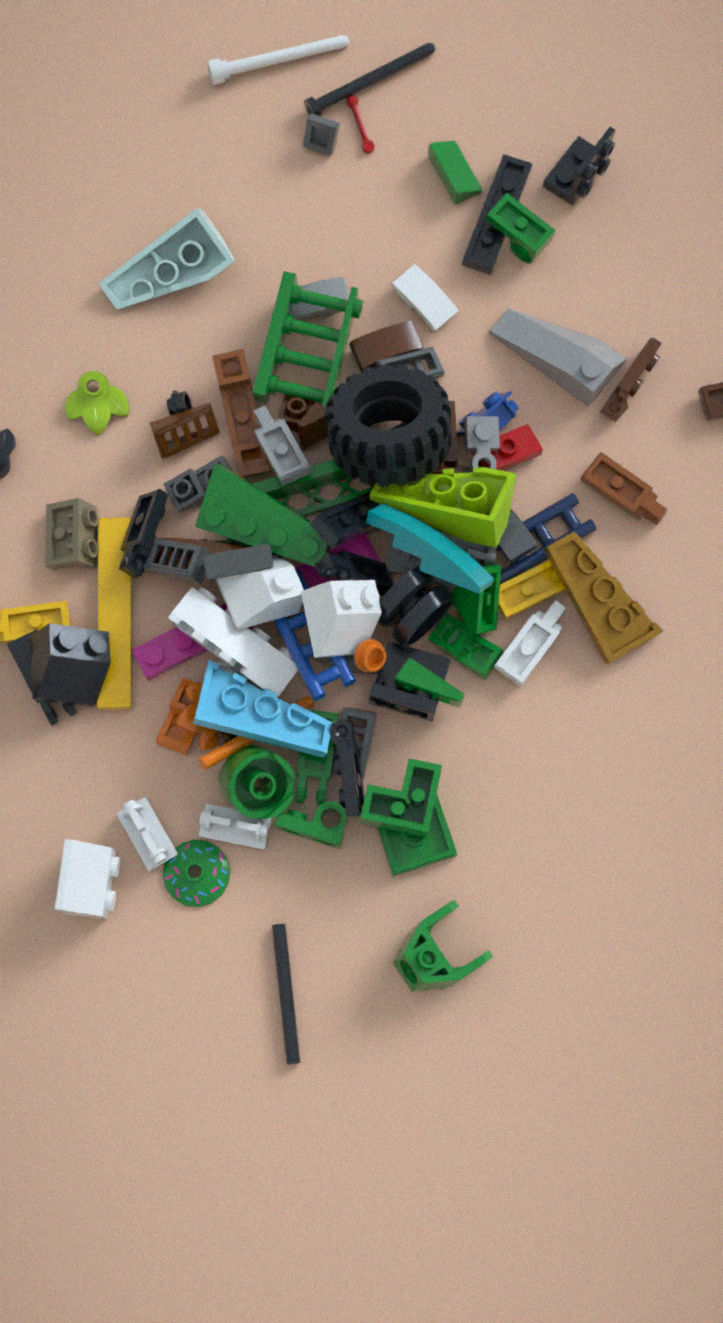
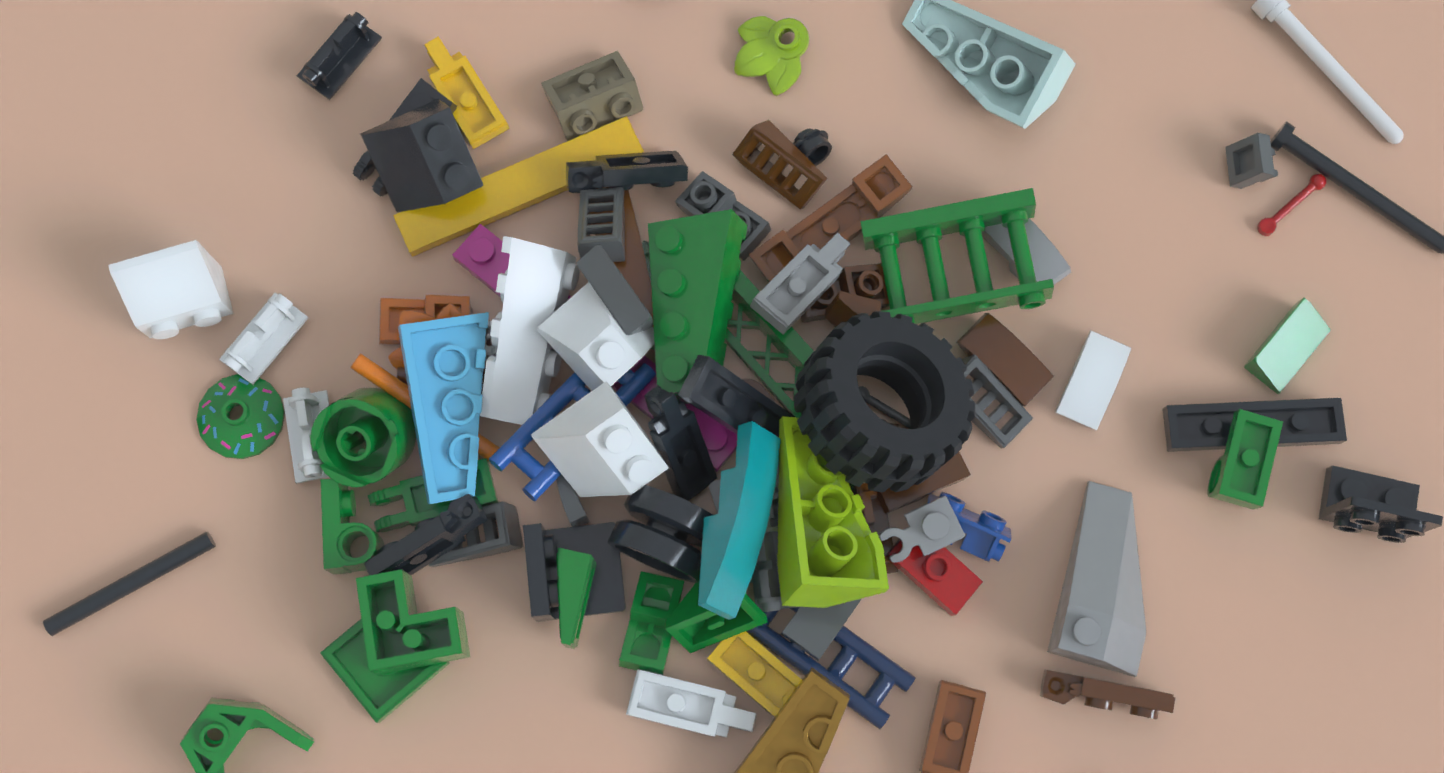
camera: 65 degrees right, 0 degrees up
(369, 656) = (573, 504): orange plate -> none

